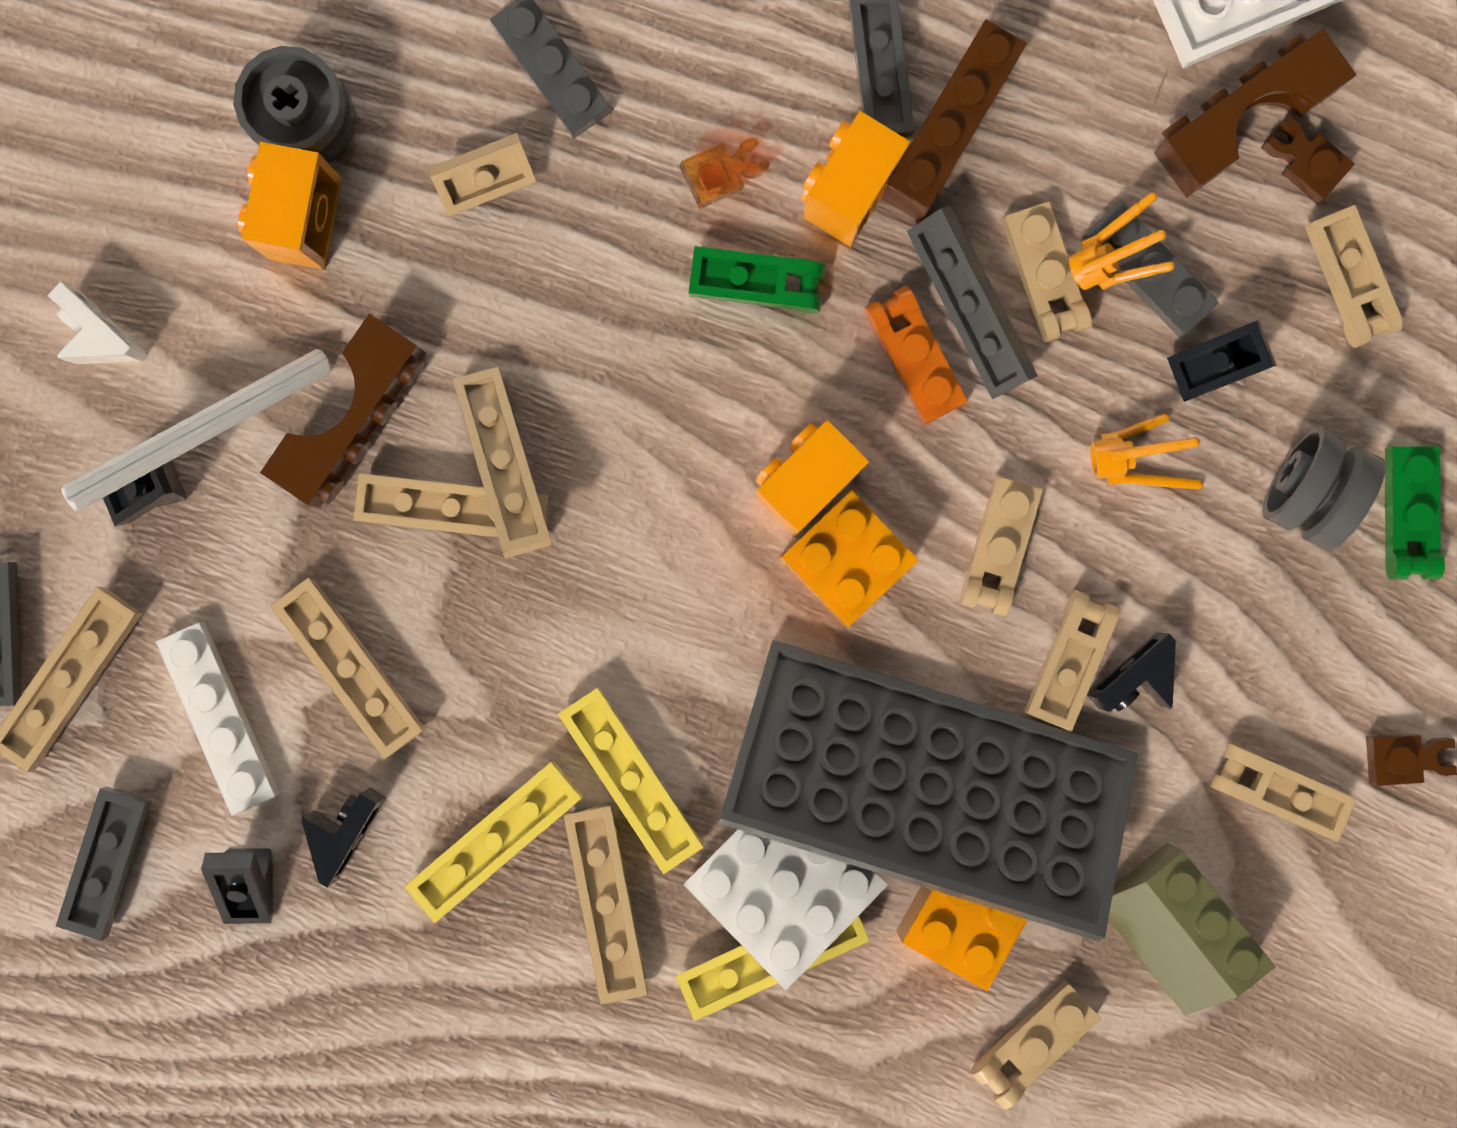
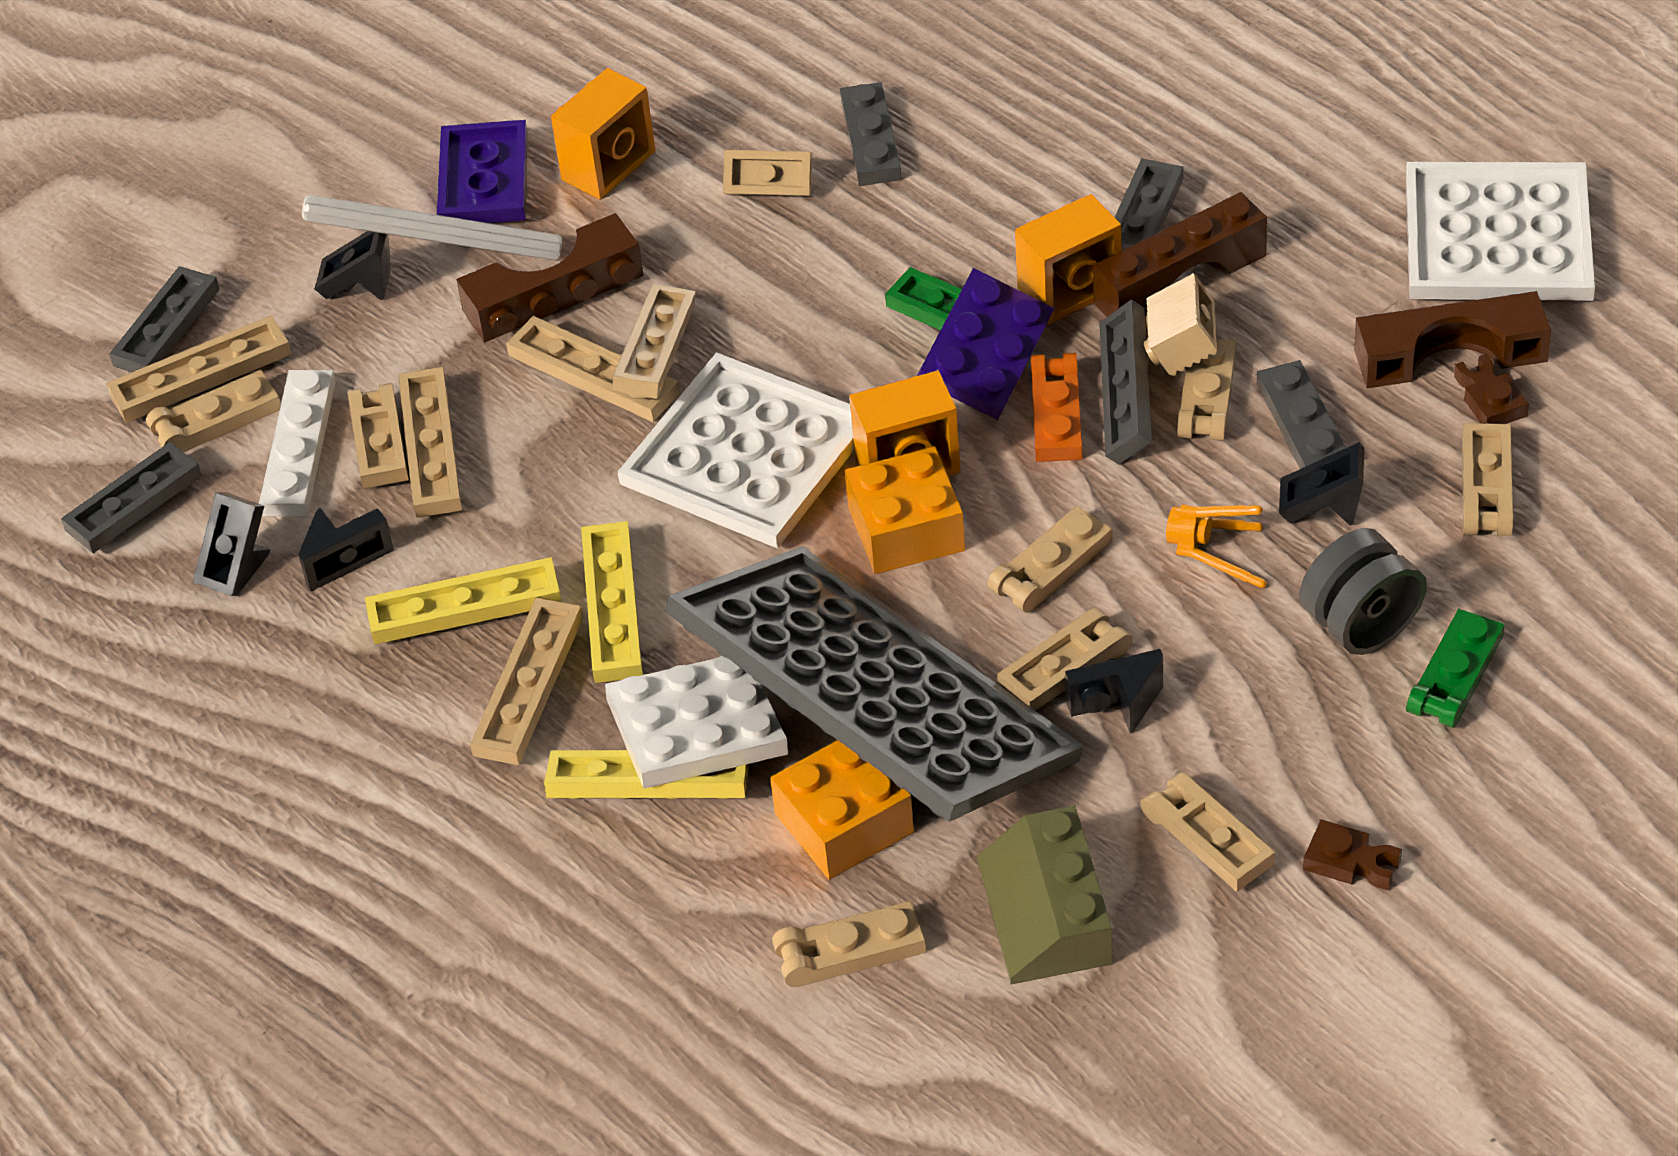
camera: 30 degrees right, 40 degrees down
(97, 335) = (390, 170): white slope -> none
(114, 720) = (214, 412): none -> tan plate
(189, 296) = (483, 171): none -> dark purple plate
(292, 681) = (377, 436): none -> tan plate
(294, 102) = (667, 72): dark grey wheel -> none
(655, 542) = (743, 450): none -> white plate
(717, 174) = (962, 234): clear orange plate -> none
(820, 318) = (986, 342): none -> dark purple plate
(1001, 219) = (1180, 325): none -> tan brick
(1098, 262) = (1250, 384): light orange plant -> none

